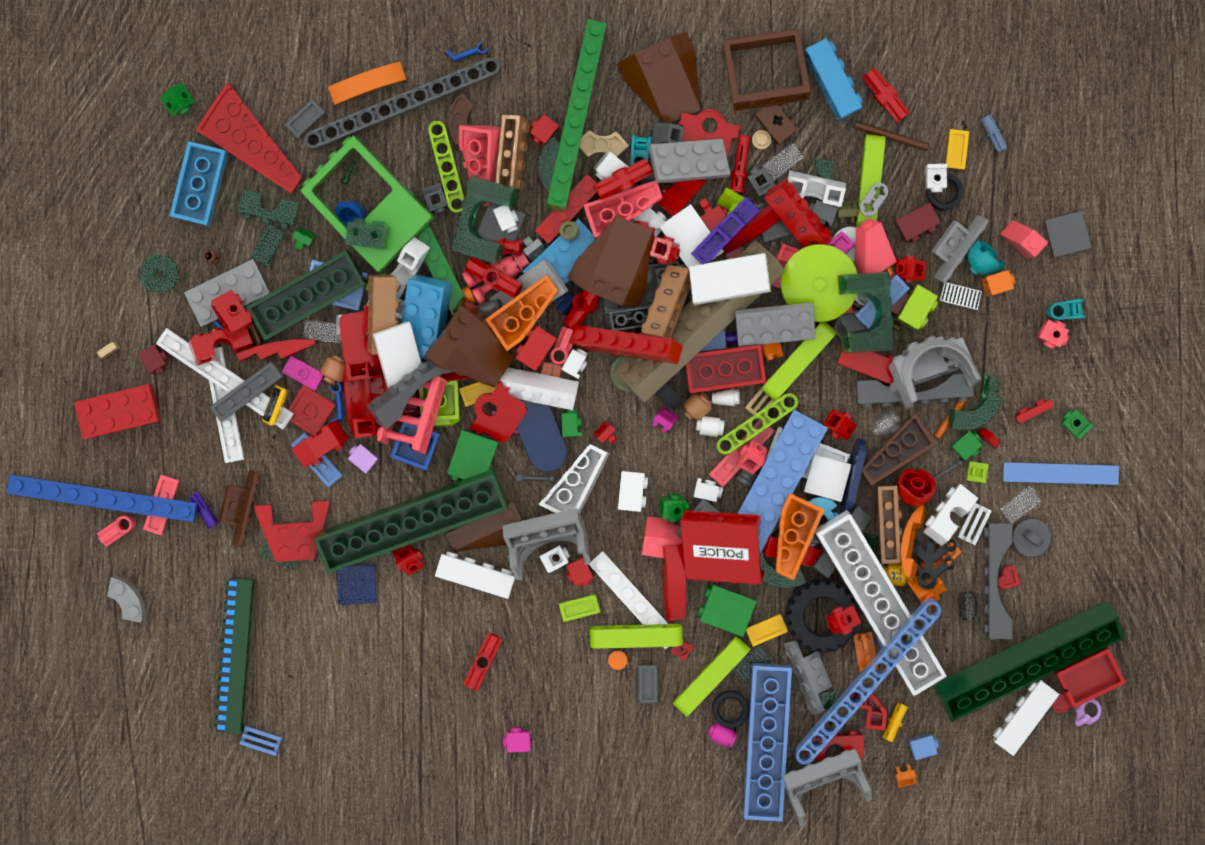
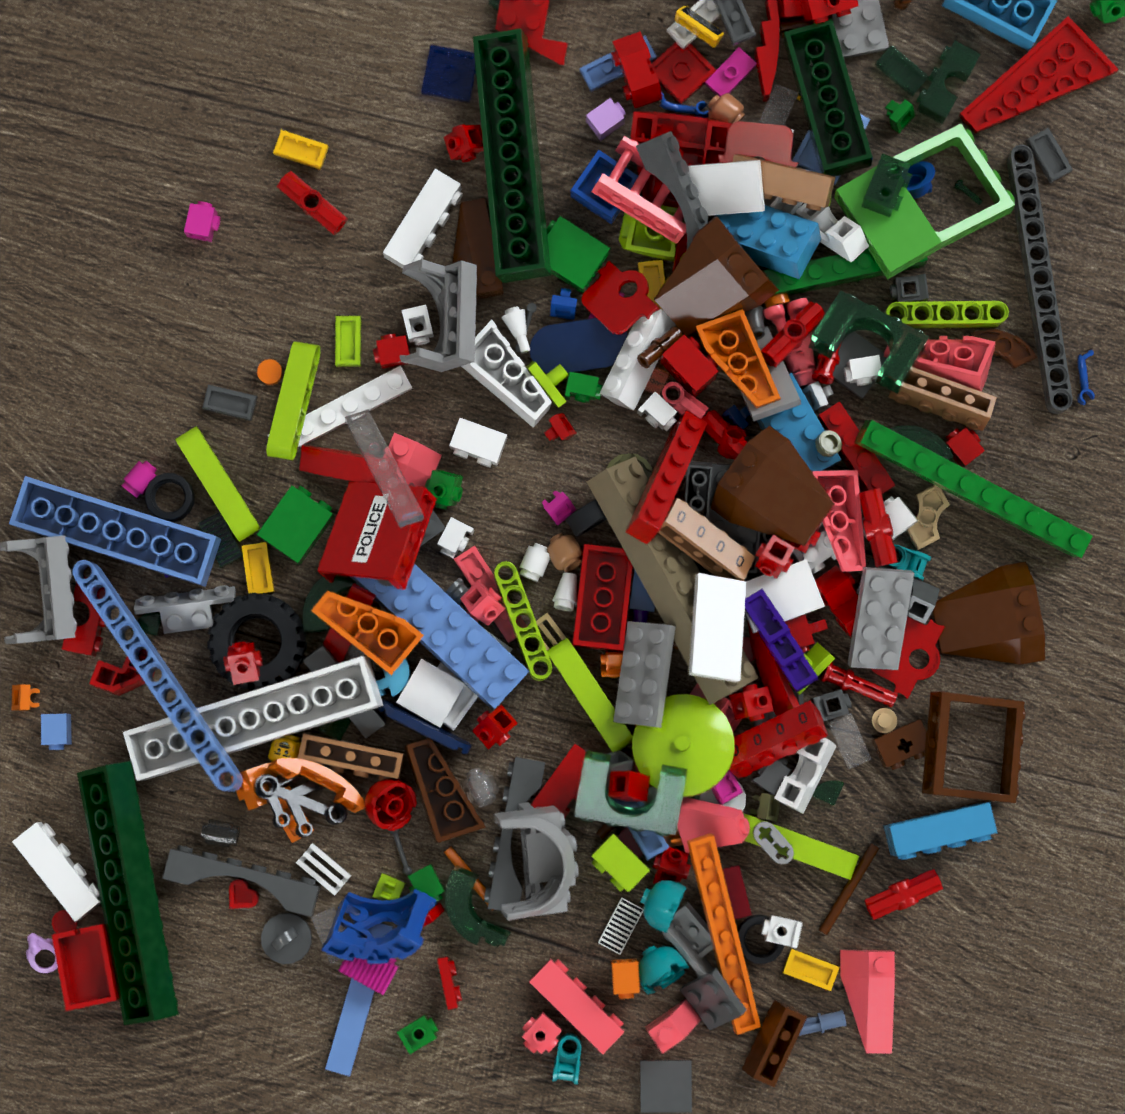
camera: 100 degrees right, 5 degrees down
(367, 82) = (1077, 243): orange slope -> none
(443, 681) = (301, 149): none -> yellow plate
(513, 454) = (563, 305): none -> blue tile
(528, 374) = (658, 347): none -> reddish brown pin
(534, 486) = (516, 322): none -> white cone
(573, 450) = (549, 381): none -> lime tile
(672, 554) = (384, 468): none -> clear tile
(682, 654) = (254, 456): red plate -> none
(775, 240) = (751, 703): none -> red brick
(860, 315) = (628, 786): none -> red brick
(864, 649) = (200, 687): orange hinge -> none
(895, 722) = (97, 702): yellow pin -> none
(939, 269) = (662, 903): none -> teal cylinder
(940, 526) = (331, 821): white arch -> none
(949, 219) = (723, 927): none -> orange plate
(959, 103) = (870, 992): none -> coral wedge
(998, 215) = (713, 999): none -> dark grey plate
(1016, 452) = (405, 912): none -> blue fence
(1017, 163) = (774, 1043): none -> reddish brown brick
(1027, 313) = (577, 1006): none -> coral brick
(1038, 471) = (371, 975): none -> dark pink brick

